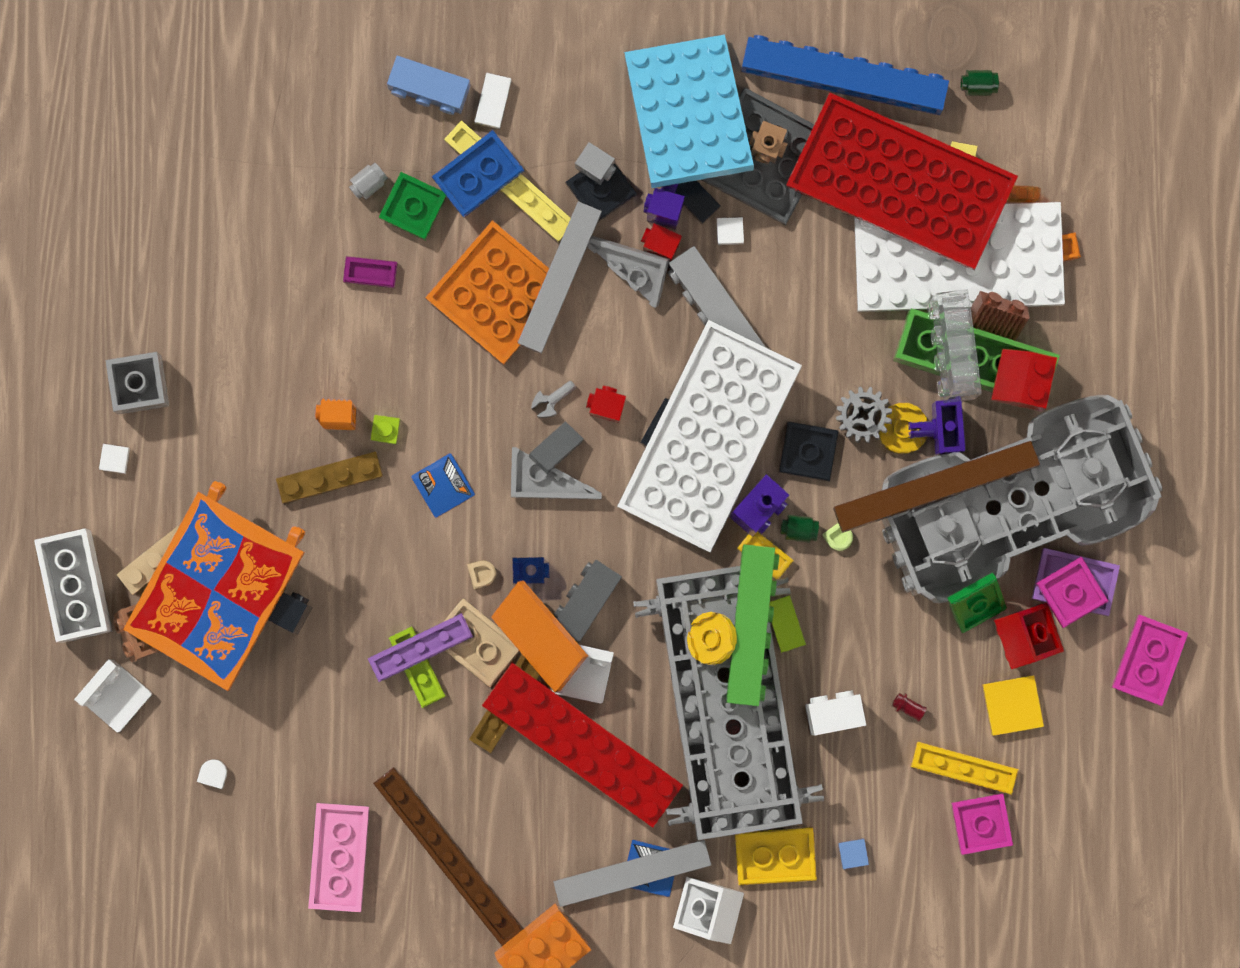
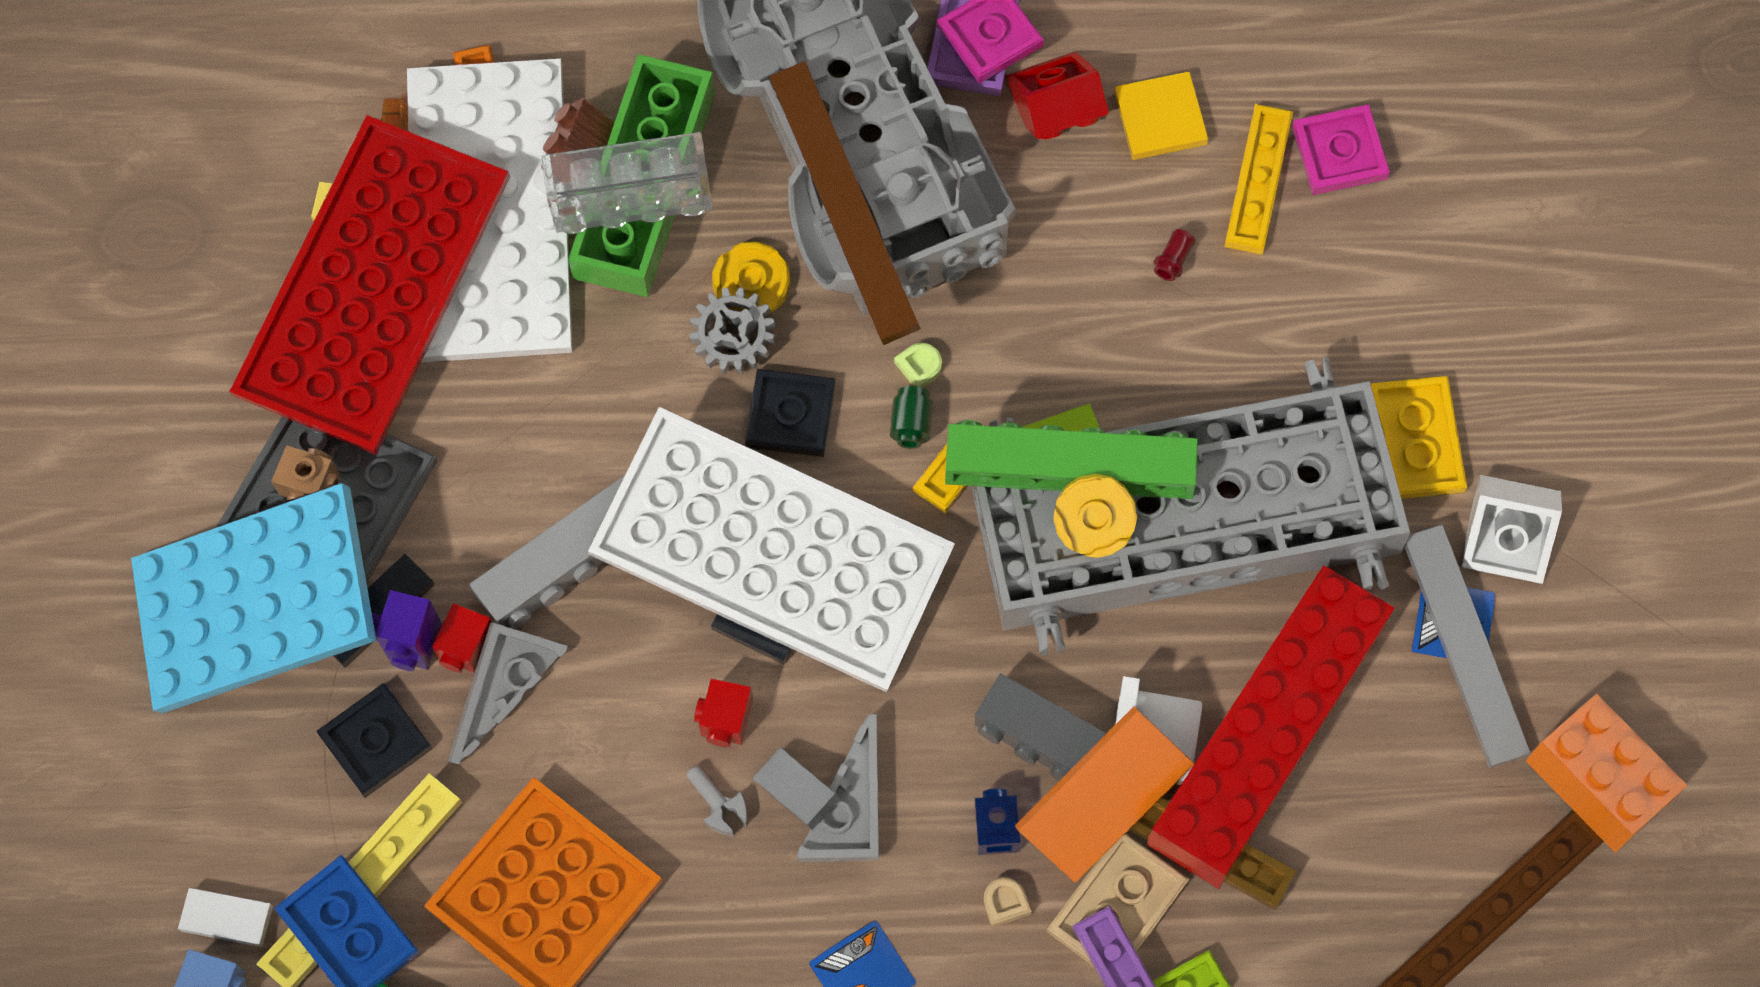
camera: 85 degrees left, 15 degrees down
(559, 277) = (520, 791): light grey tile -> none
(595, 164) = (334, 741): light grey brick -> none
(730, 231) = (445, 539): white tile -> none
(759, 506) = (878, 473): dark purple brick -> none
(835, 714) = (1194, 350): white brick -> none
(845, 75) = (202, 381): blue brick -> none
(853, 853) = (1402, 326): medium blue tile -> none
(944, 428) = (750, 213): dark purple brick -> none
(977, 603) = (1013, 160): green tile -> none
(979, 82) = (222, 187): dark green brick -> none
(1024, 379) = (675, 91): red slope -> none

